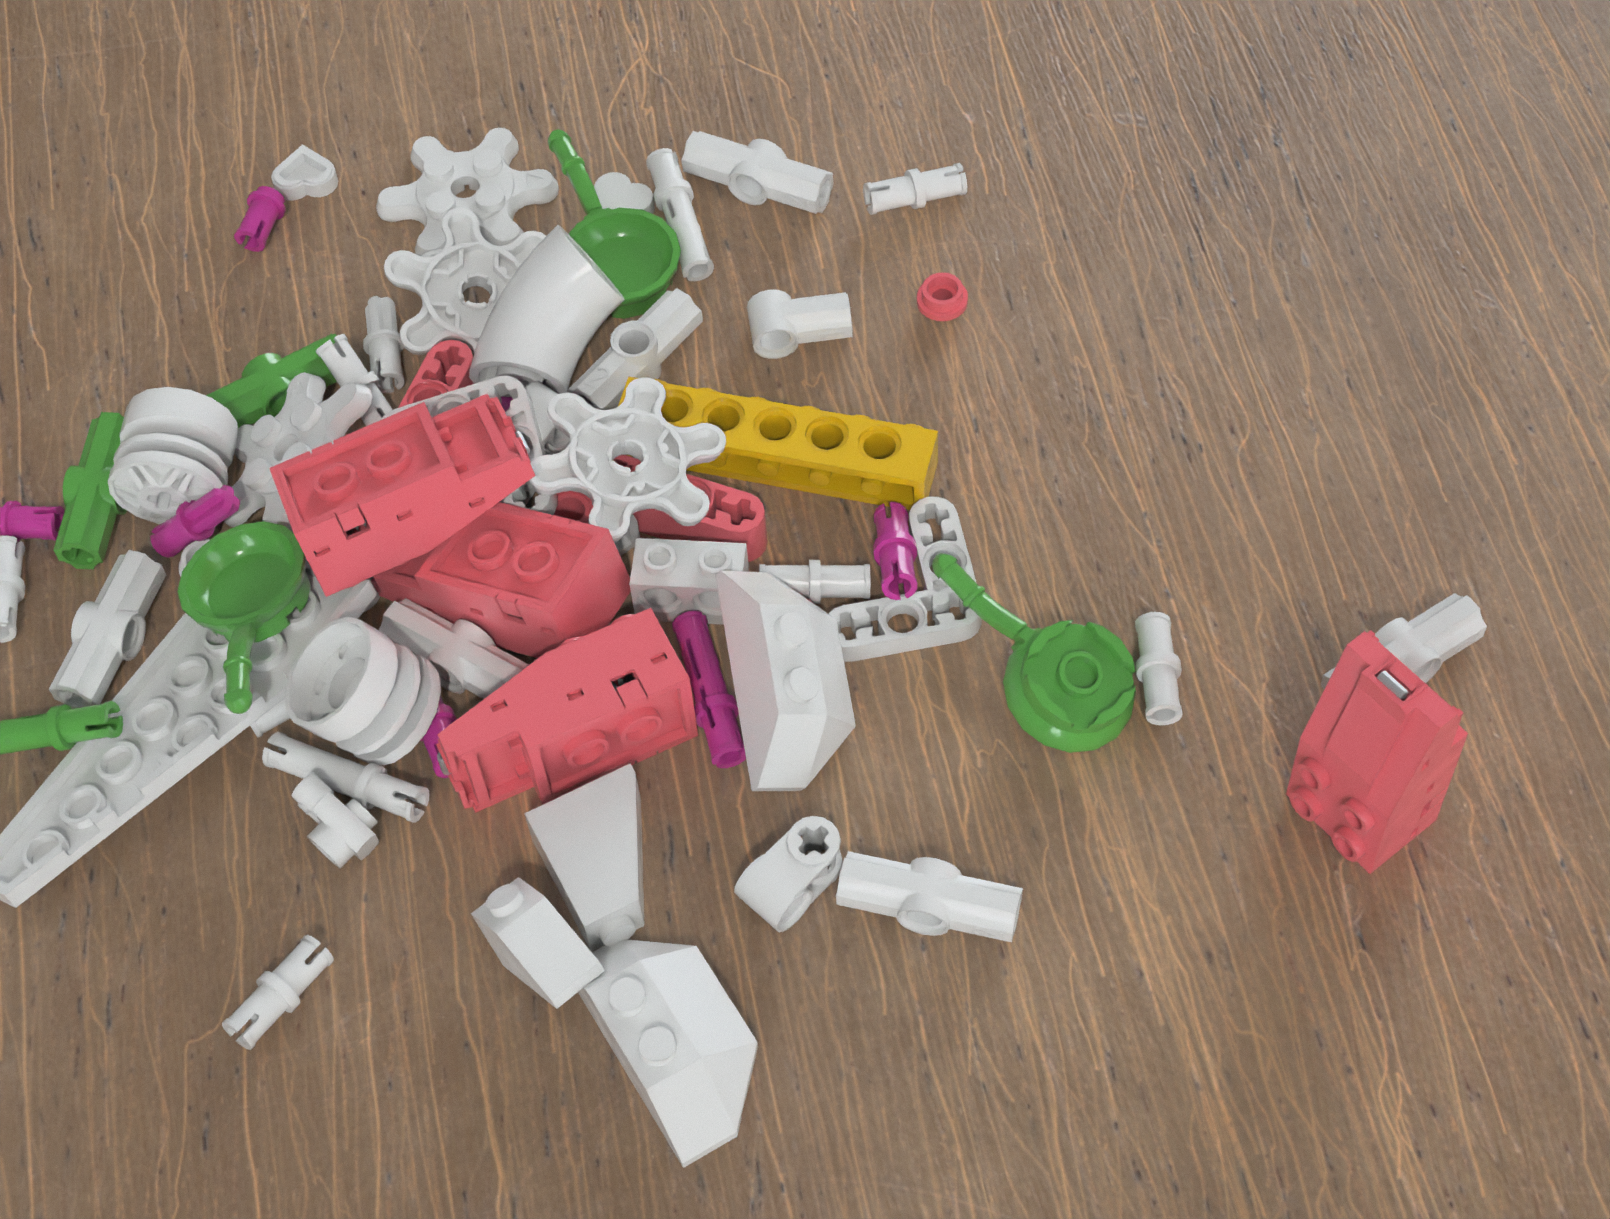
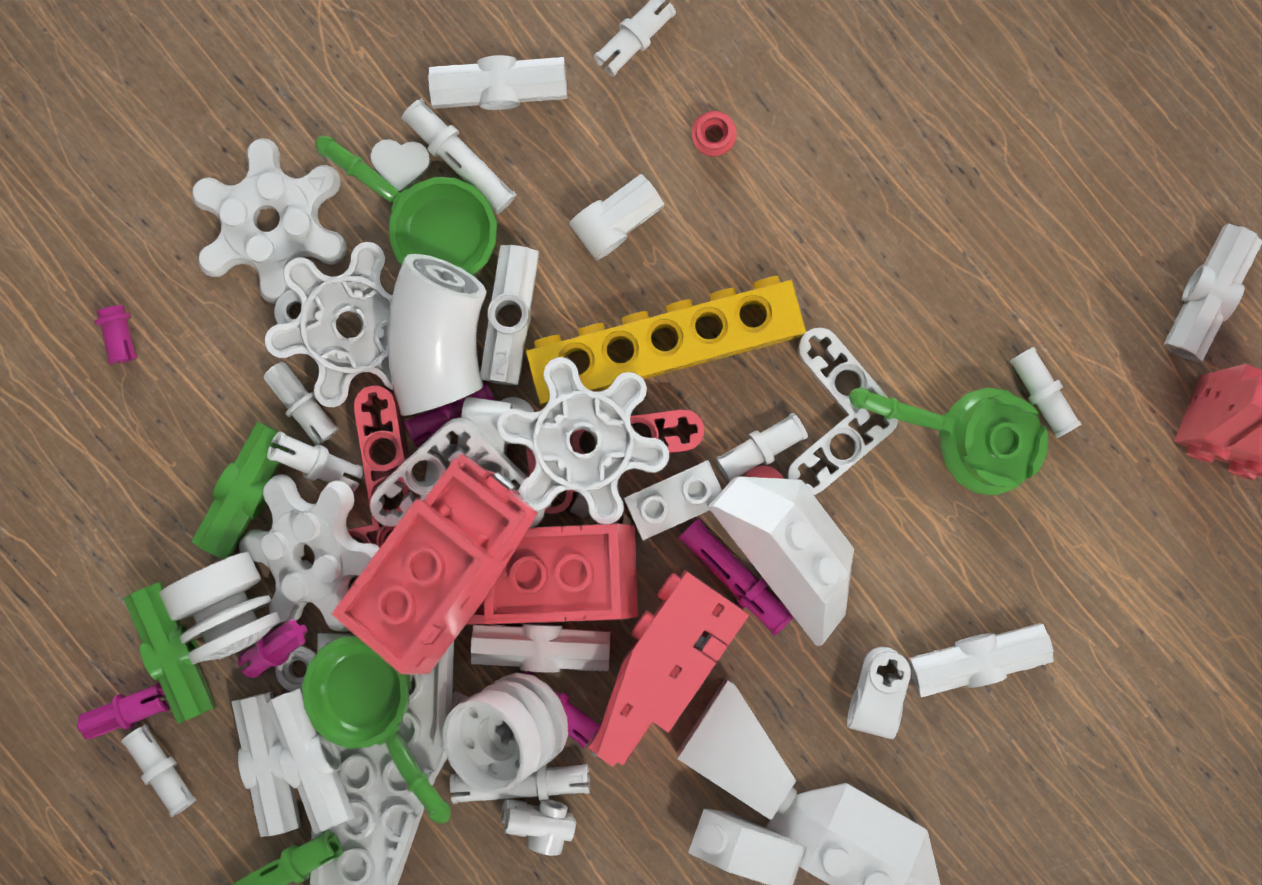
camera: 30 degrees left, 30 degrees up
(148, 636) = (310, 763): none -> white piece
(304, 175) = (120, 268): white tile -> none
(895, 551) = (809, 394): dark pink pin -> none

